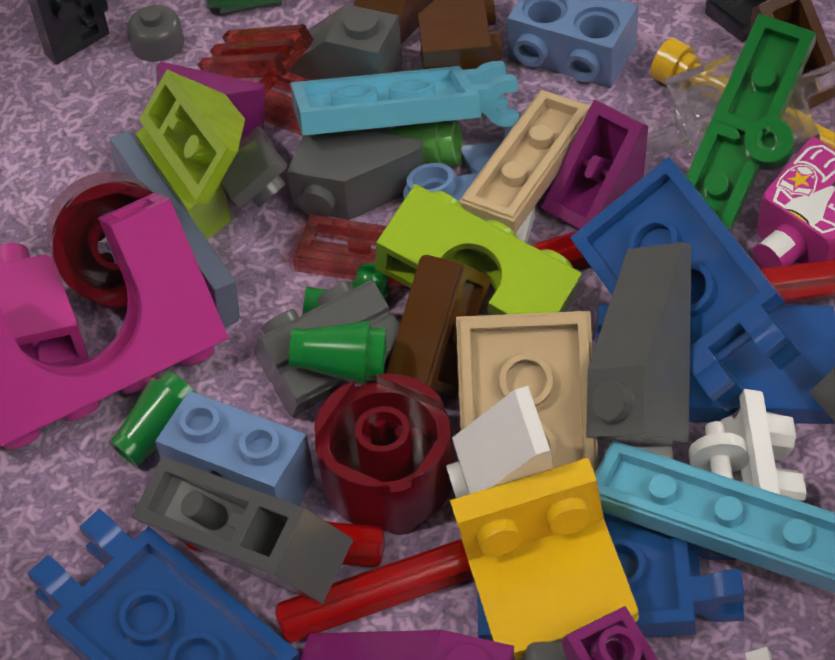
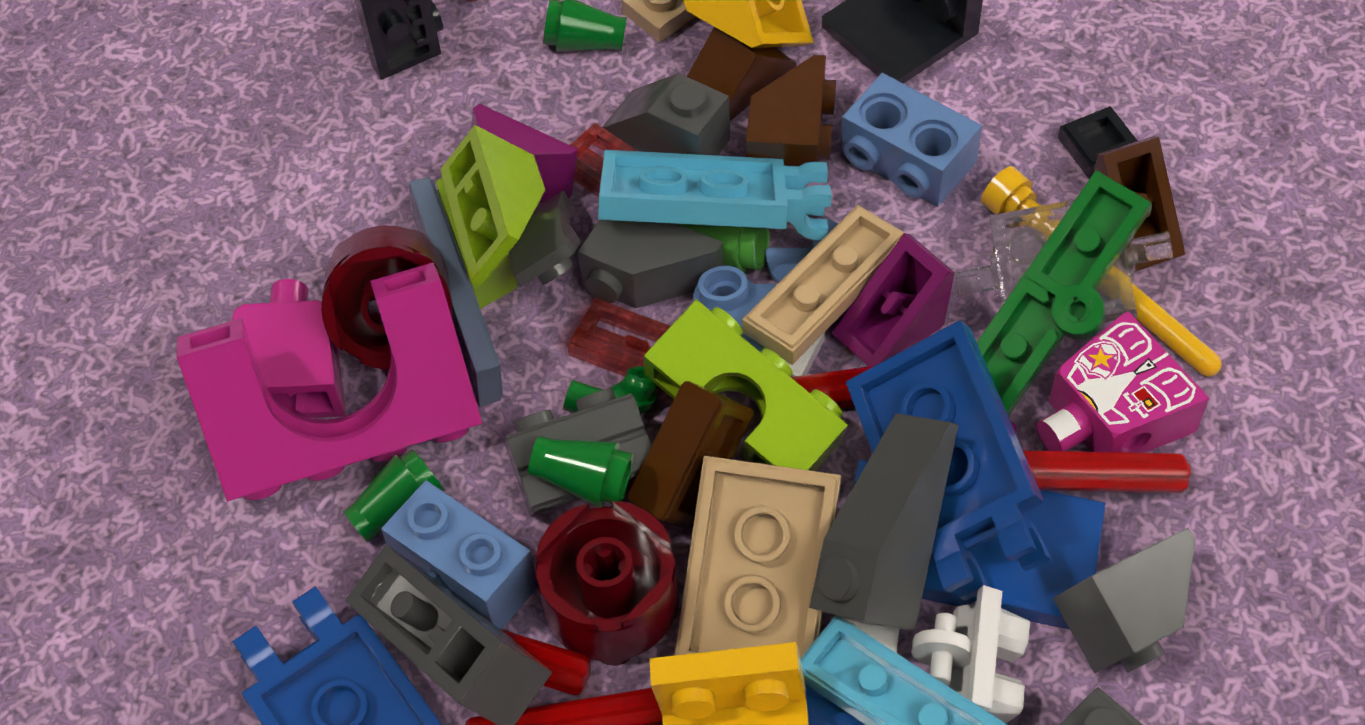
camera: 10 degrees right, 5 degrees up
(155, 33) = (485, 64): dark grey piece -> none
(258, 51) = (584, 99): clear red tile -> none
(500, 446) = (713, 613): white slope -> none

